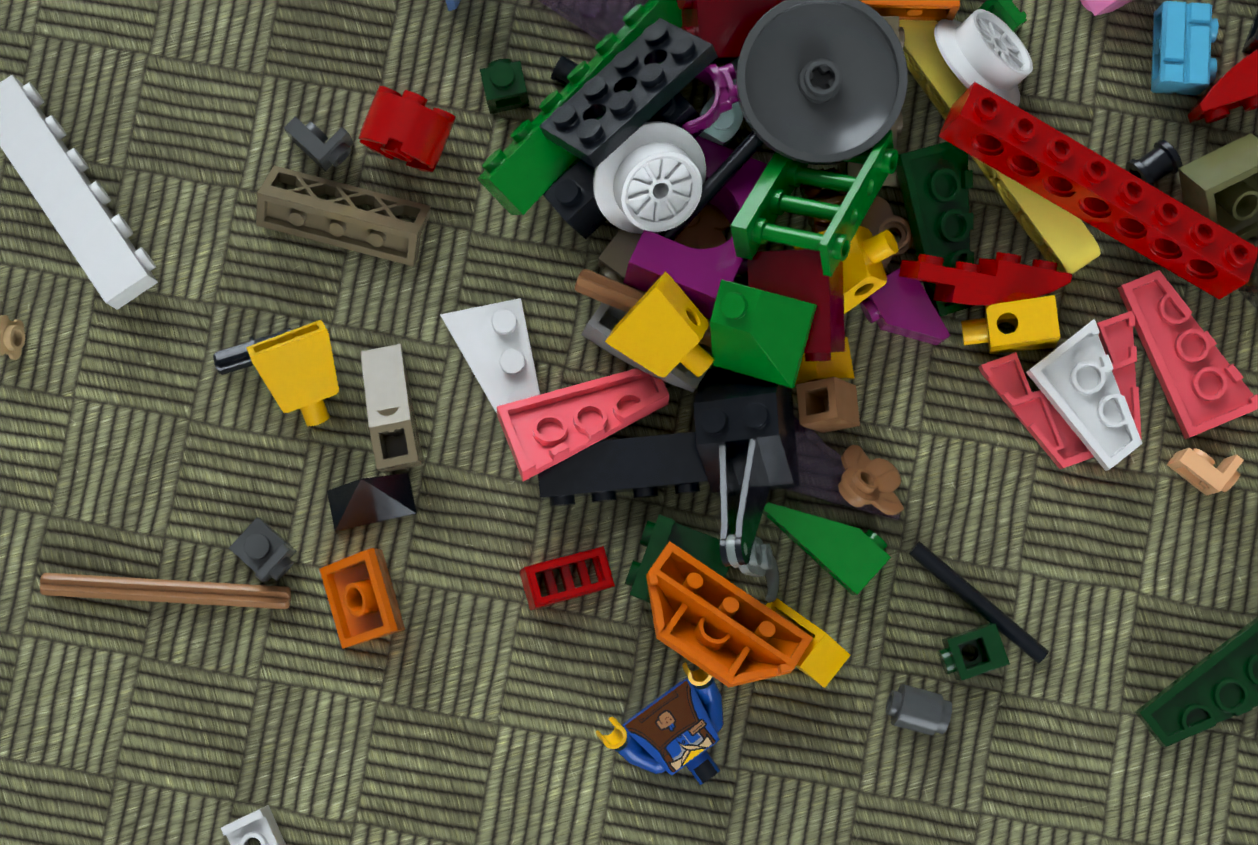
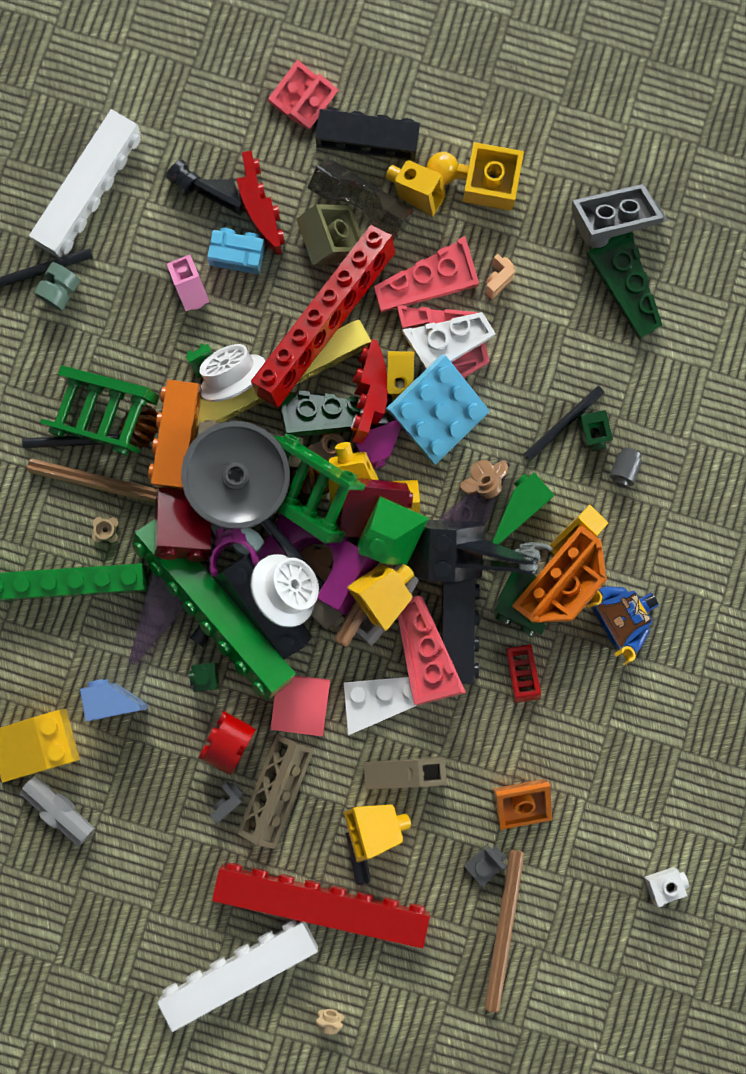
camera: 90 degrees left, 0 degrees up
(176, 304) = (321, 906): none -> red brick
(371, 501) = (461, 792): black slope -> none
(477, 238) = (301, 706): none -> coral slope
(624, 112) = (243, 597): black plate -> none
(827, 405) = (435, 498): medium nougat brick -> none
(972, 392) = (438, 409): none -> medium azure plate
(1156, 163) = (308, 279): black bush -> none

